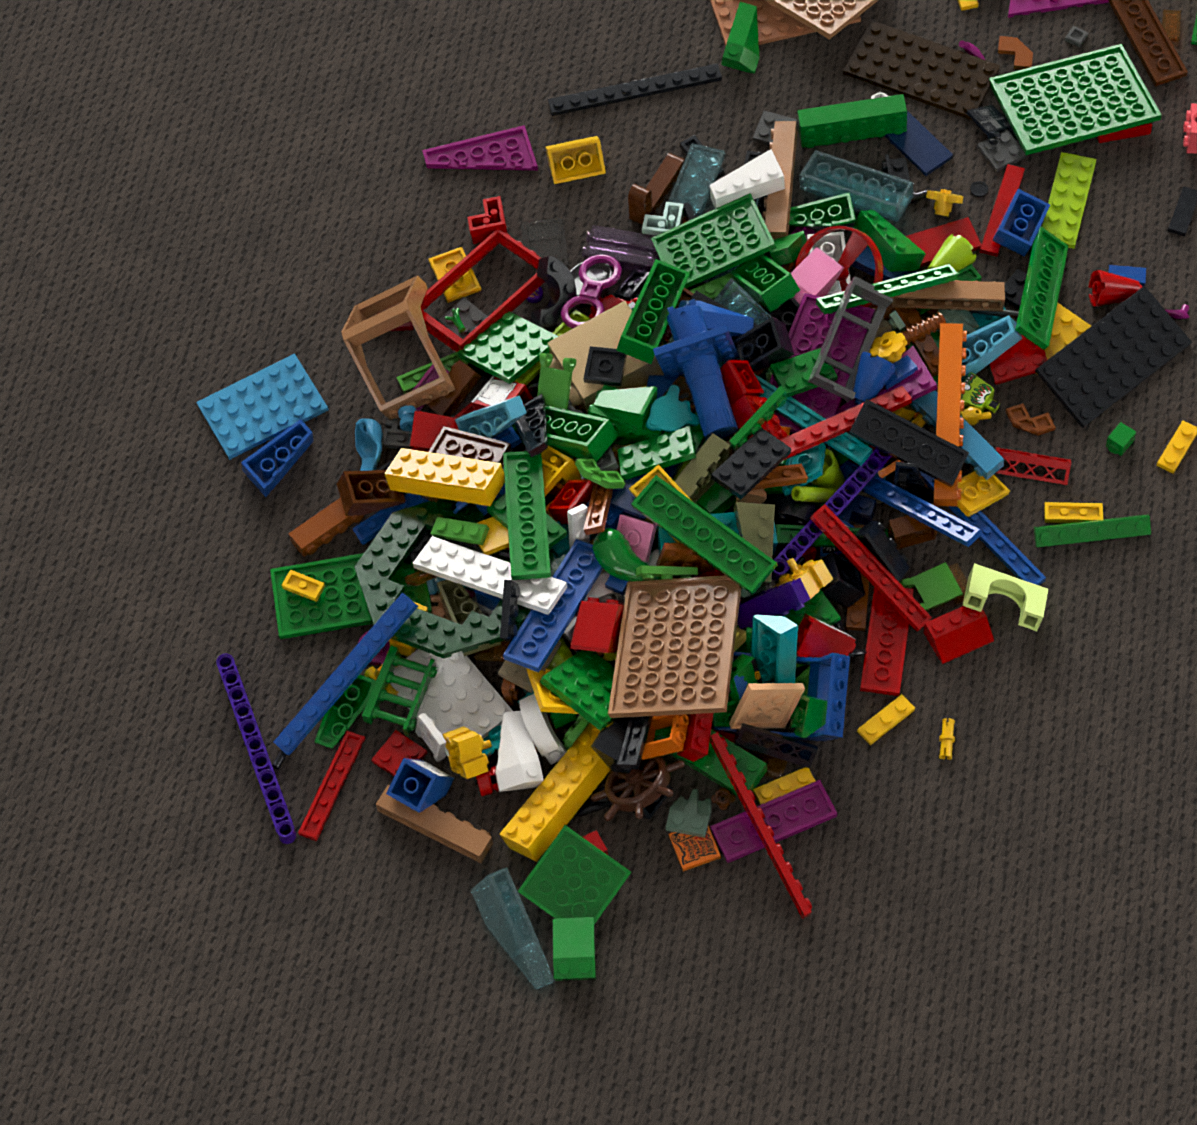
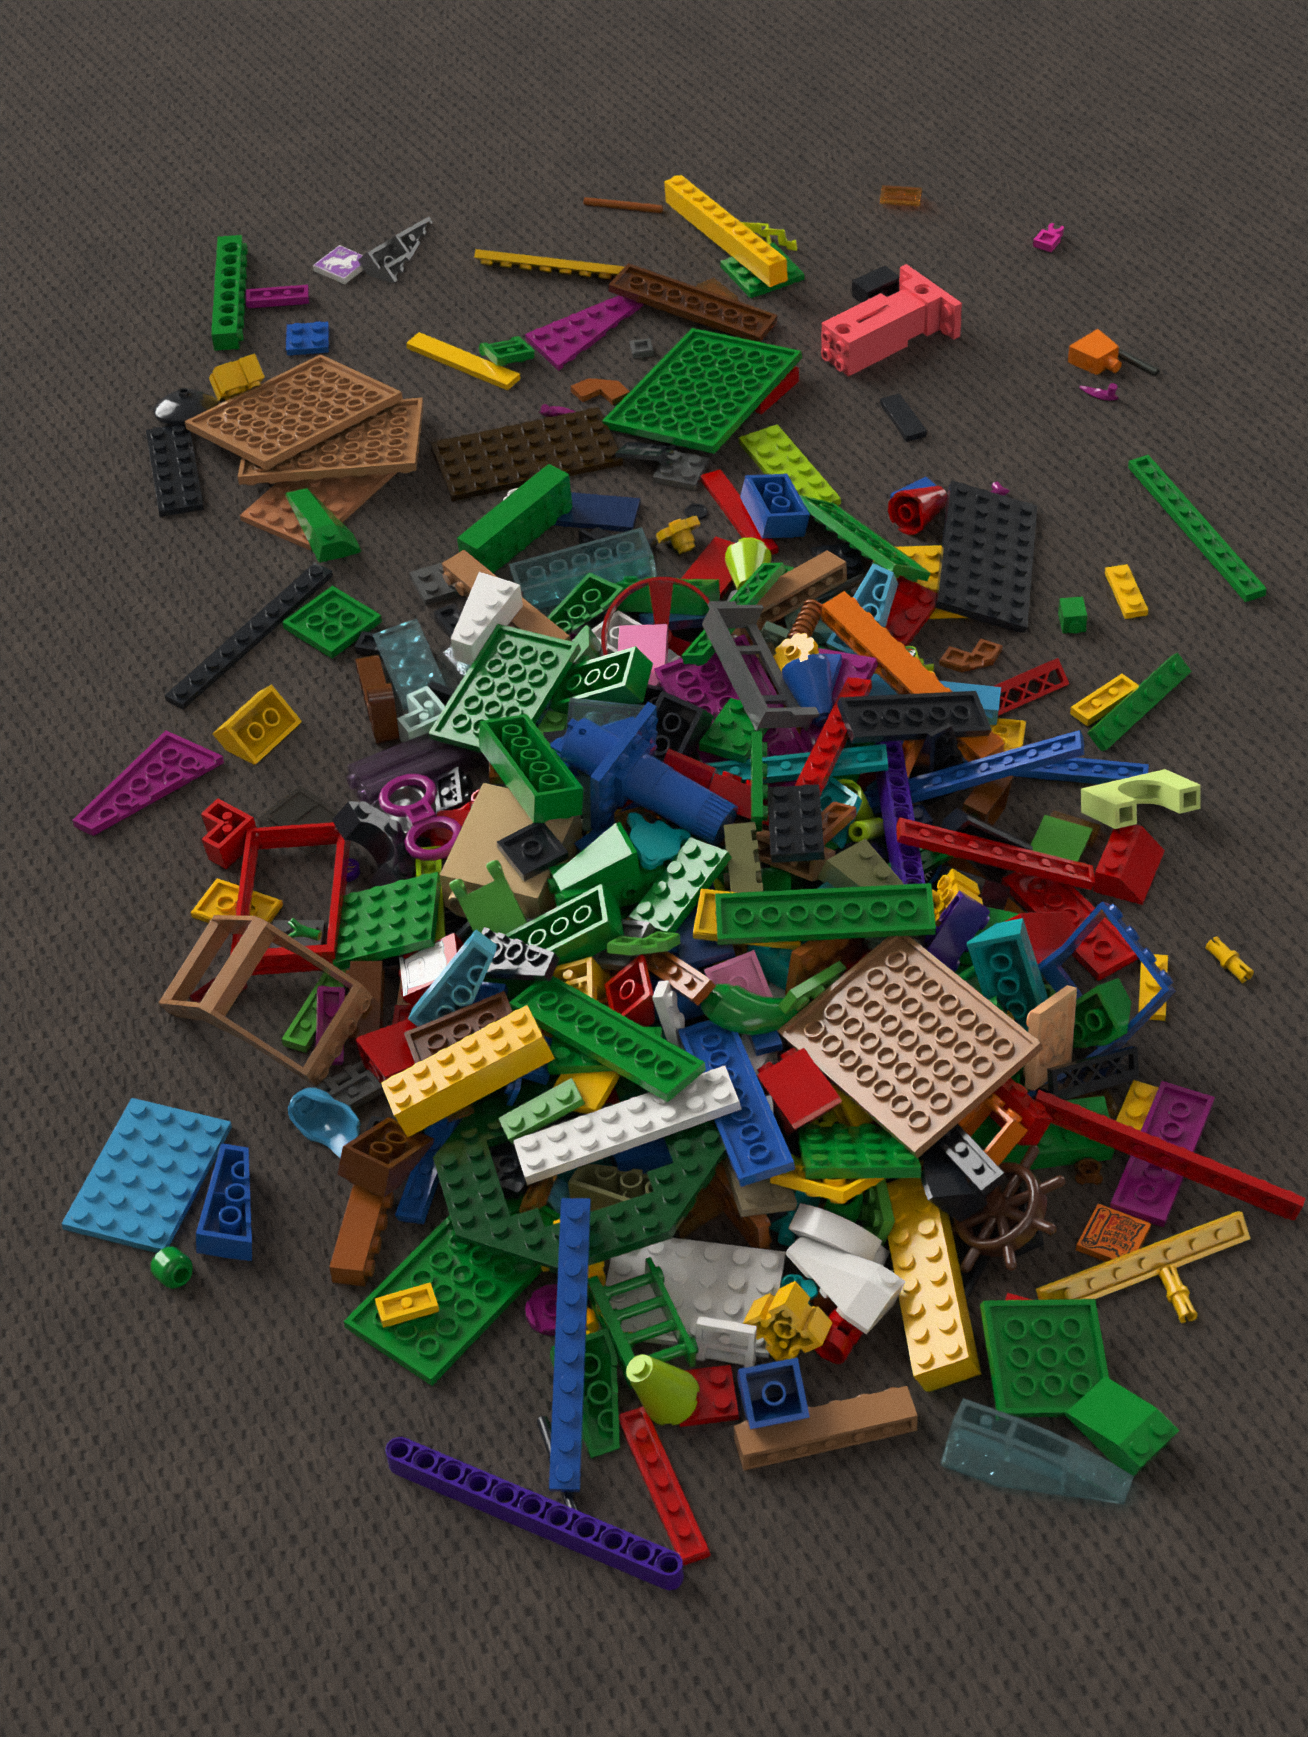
camera: 45 degrees left, 15 degrees down
(221, 470) = (171, 1267): none -> green head
(373, 735) = (663, 1389): none -> lime cone
(406, 415) = (342, 1060): dark azure wheel -> none
(509, 610) = (701, 1130): black plate -> none
(686, 114) = (332, 621): none -> green plate
(689, 815) = (1078, 1211): sand green plate -> none
(689, 905) = (1177, 1294): none -> yellow pin
(690, 874) = (1149, 1260): none -> yellow tile

